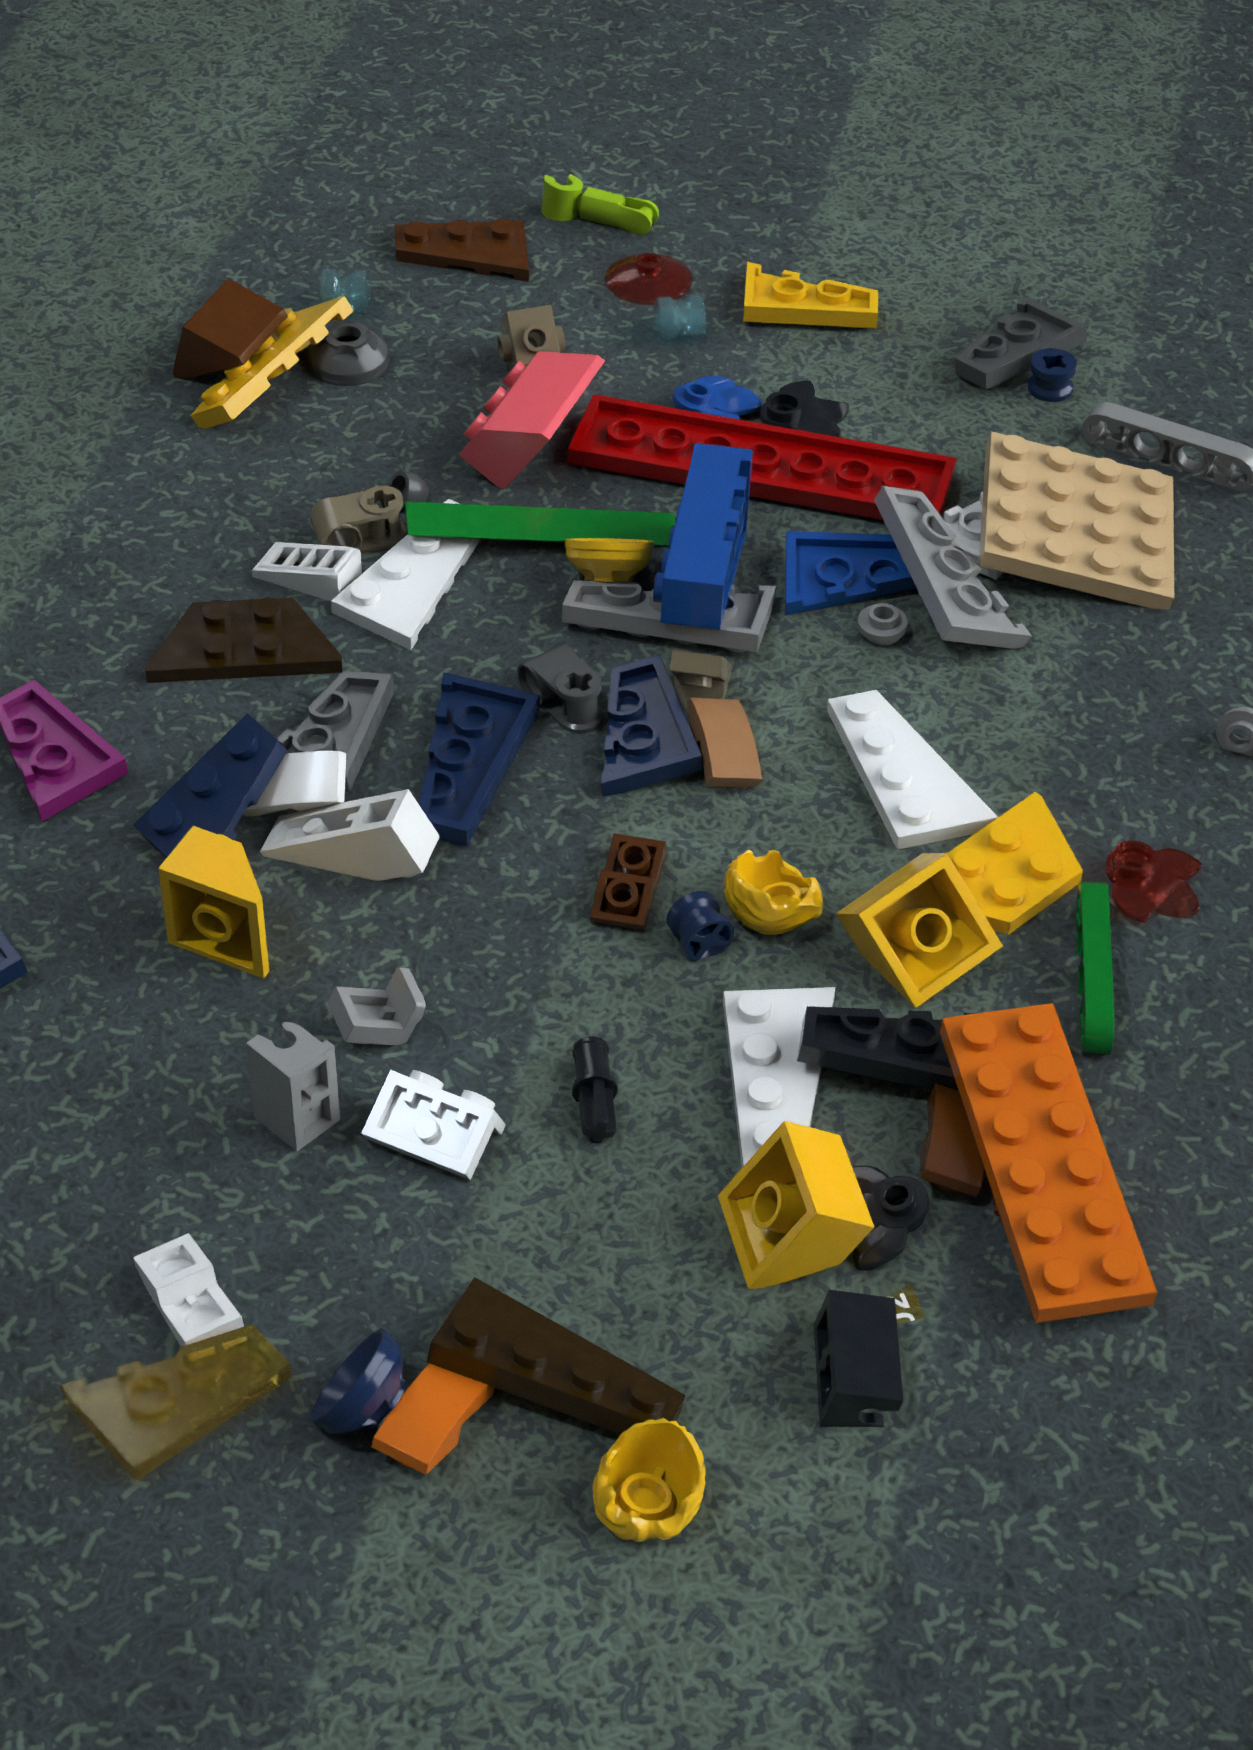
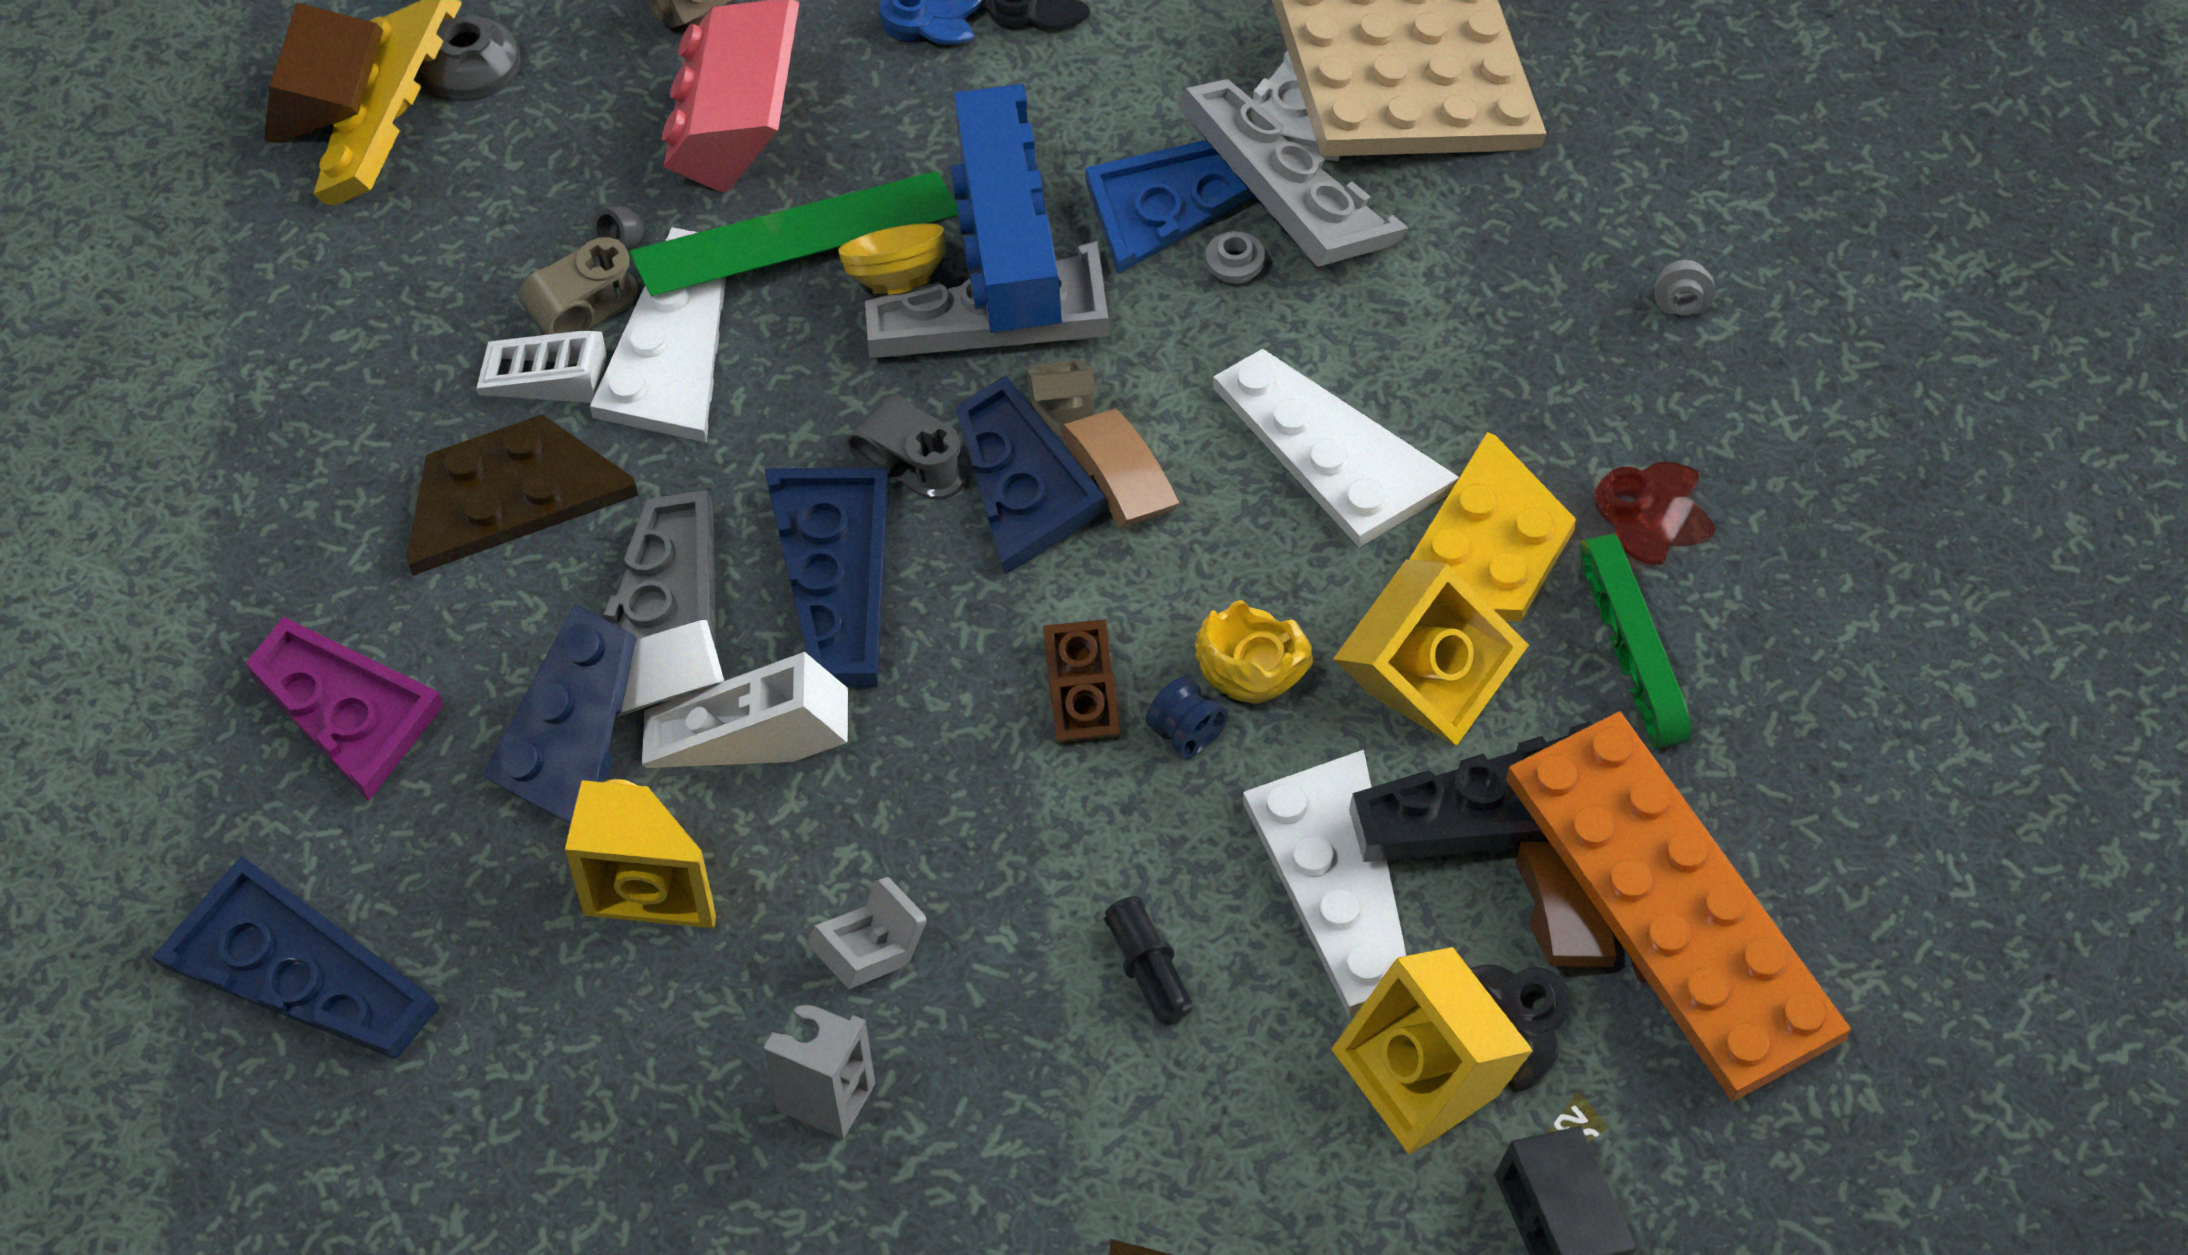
camera: 15 degrees left, 10 degrees up
(431, 1123) = (988, 1062): white bracket -> none
(786, 462) = (1066, 70): red plate -> none

